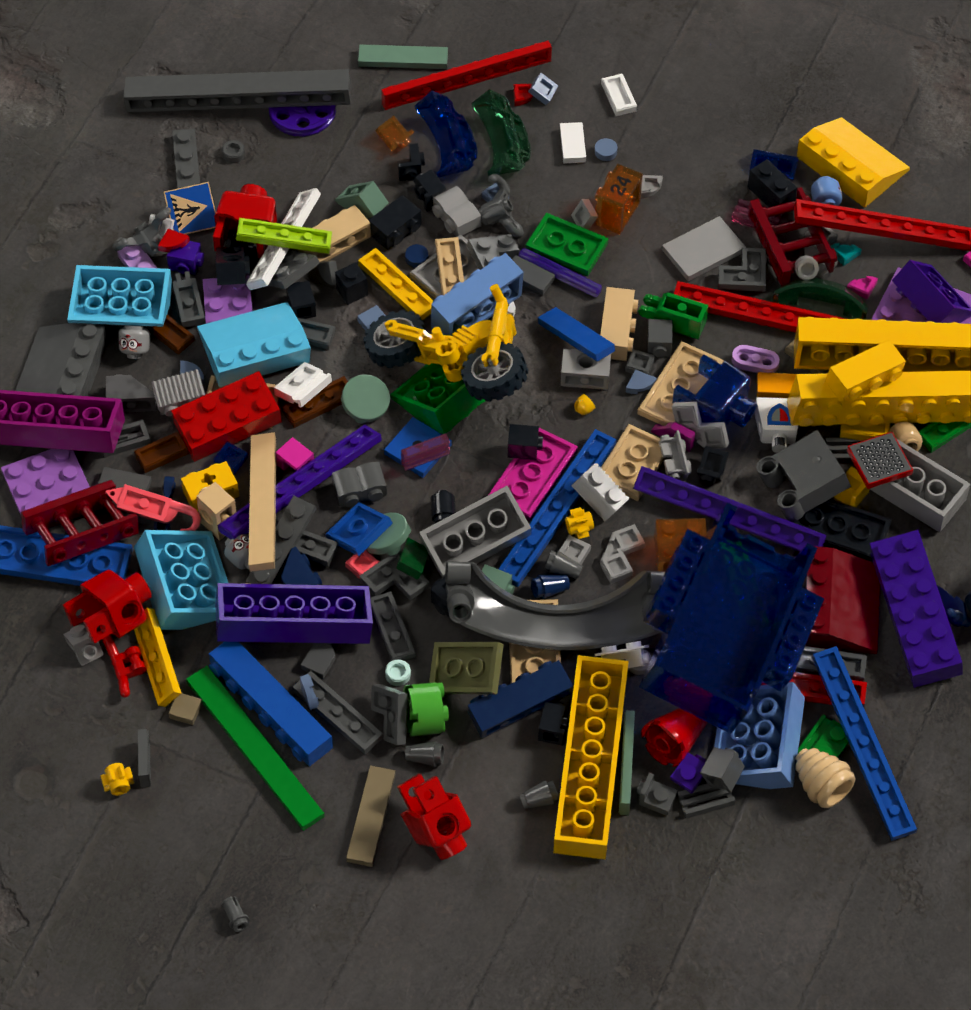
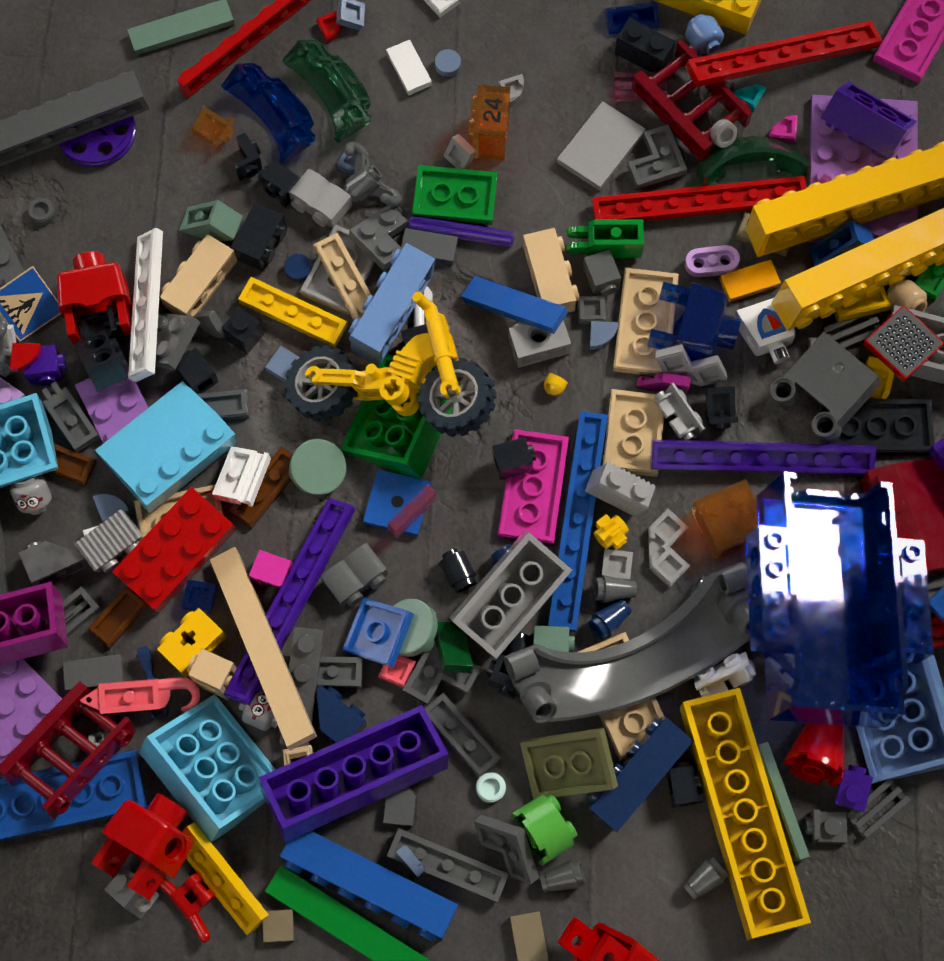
camera: 20 degrees left, 15 degrees up
(284, 235) = (147, 305): lime tile -> none
(722, 769) = (889, 775): dark grey brick -> none
(865, 371) = (859, 251): yellow brick -> none

